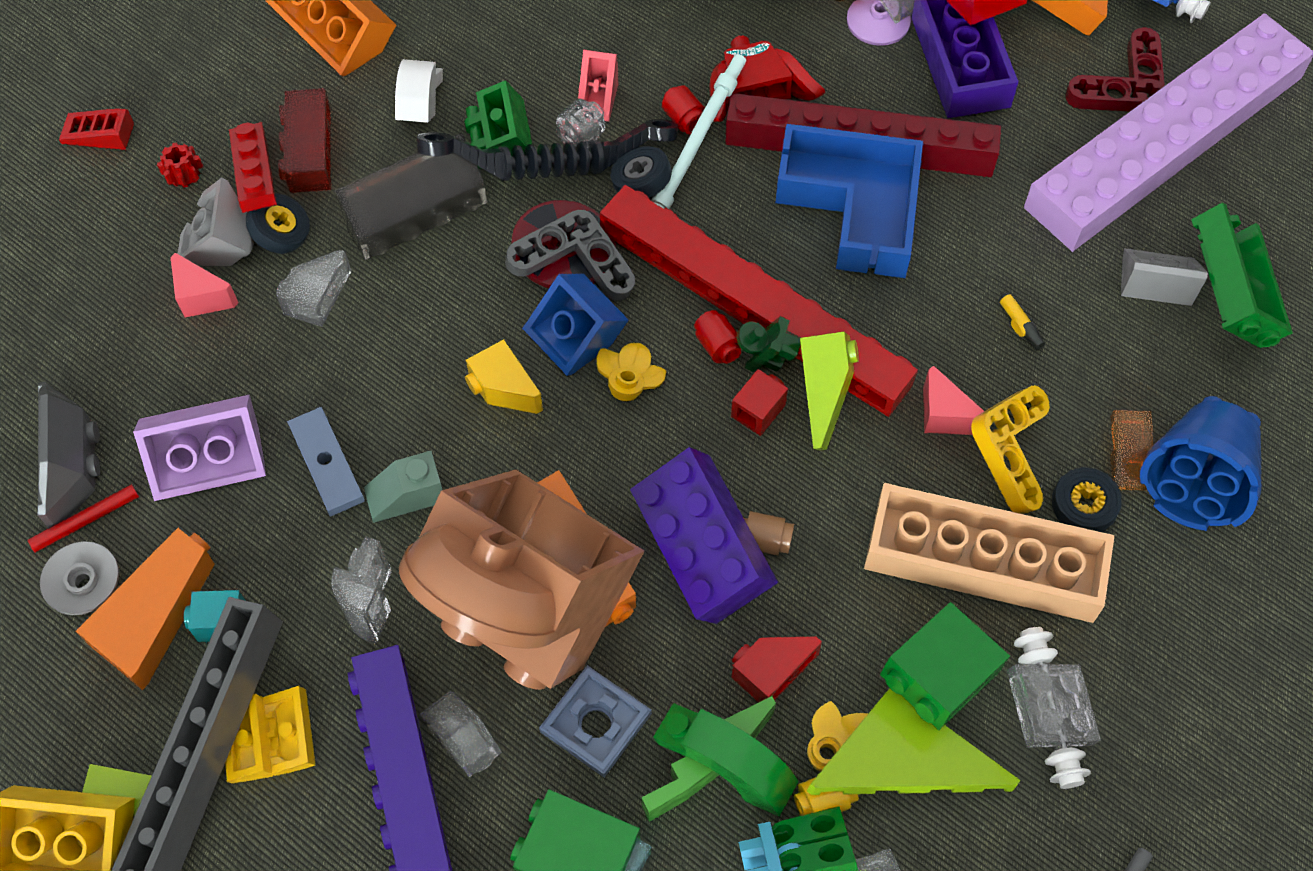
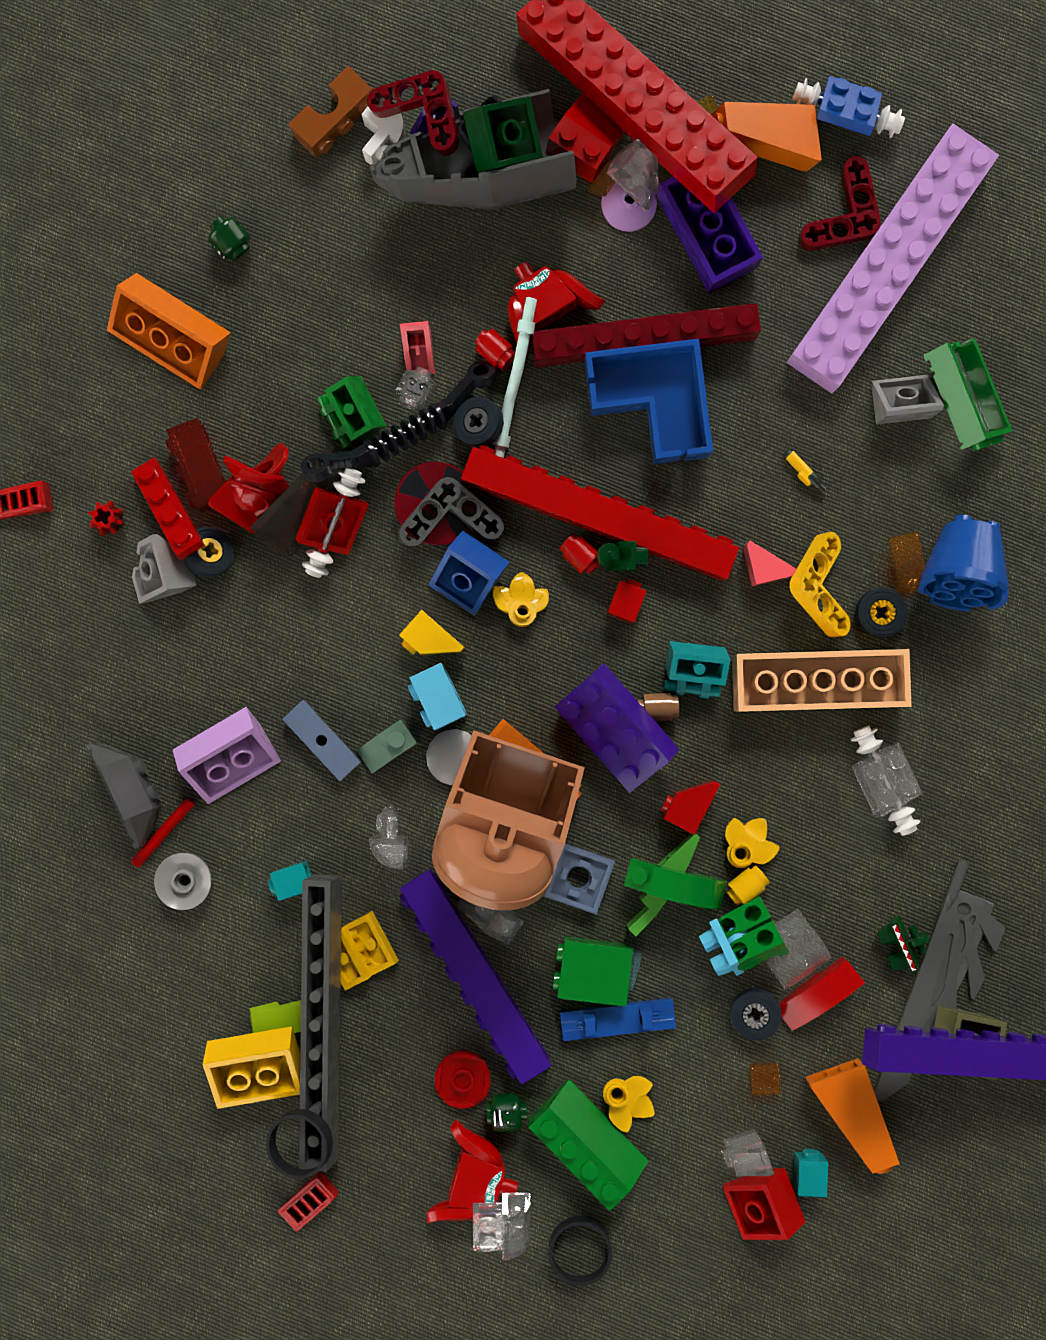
camera: 15 degrees left, 25 degrees up
(149, 607) = (241, 890): orange slope -> none
(198, 289) = (167, 627): coral slope -> none
(314, 287) = (257, 600): clear slope -> none
(347, 161) = (251, 489): none -> red helmet
(417, 90) = (272, 394): white brick -> none
(433, 221) = (332, 521): none -> red plate
(484, 434) = (437, 697): none -> medium azure brick
(828, 374) = (673, 571): lime slope -> none
(828, 490) = (696, 664): none -> teal brick
(906, 754) = (794, 842): lime tile -> none
(944, 666) = (807, 775): green brick -> none

